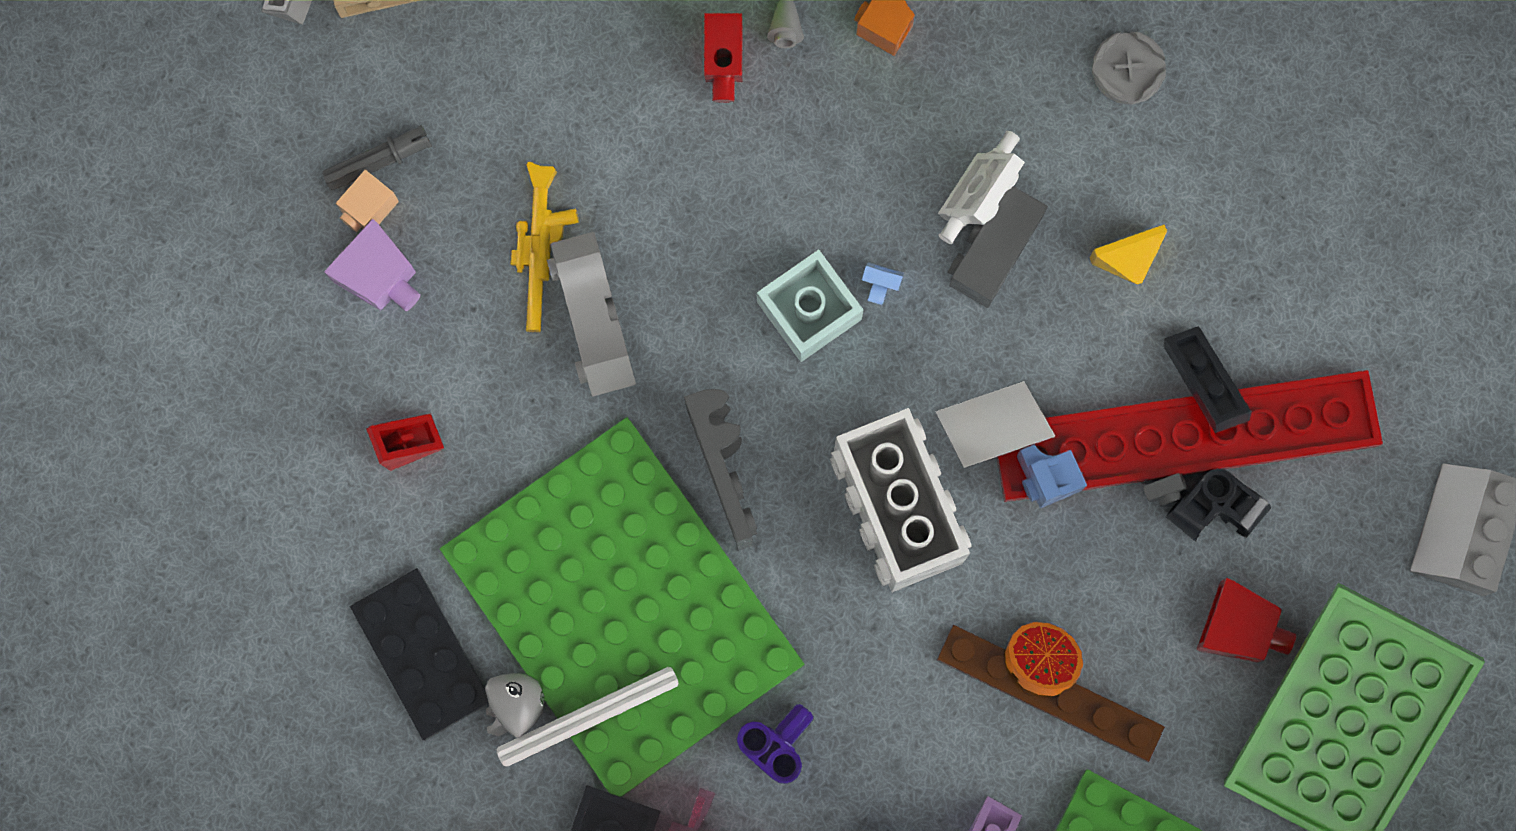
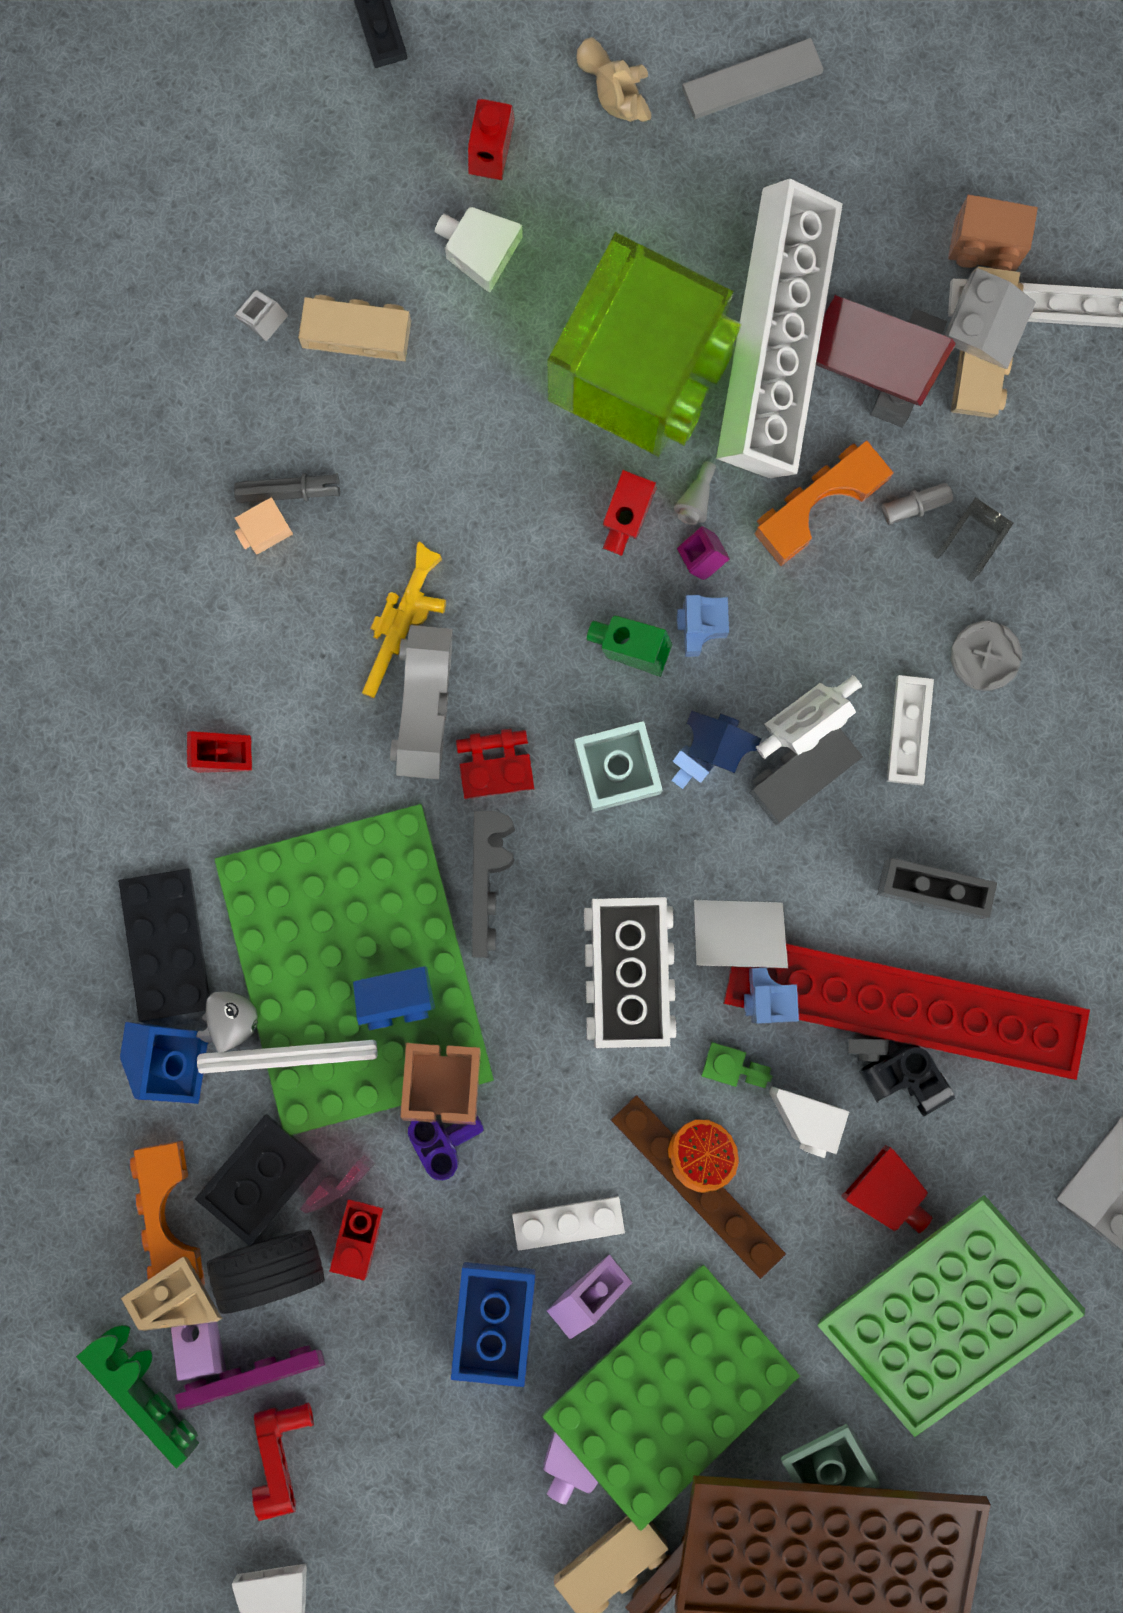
camera: 15 degrees right, 5 degrees up
(374, 270) = (248, 589): lavender torso -> none
(462, 771) = (162, 1062): none -> blue slope
(673, 614) = (392, 996): none -> blue slope
(692, 361) = (496, 775): none -> red plate
(754, 683) = (440, 1084): none -> nougat piece
(778, 180) = (645, 649): none -> green torso
(813, 70) = (703, 553): none -> magenta slope
(838, 135) = (702, 620): none -> medium blue brick
(901, 242) = (720, 740): none -> dark blue brick
(934, 779) = (568, 1223): none -> white plate
(1030, 561) = (726, 1064): none -> bright green plate
(1083, 166) = (910, 730): none -> white plate
(1130, 256) = (920, 829): yellow slope -> none
(1136, 581) = (811, 1122): none -> white slope
(1171, 307) = (937, 888): none -> dark grey brick
(1207, 379) = (943, 965): black plate -> none

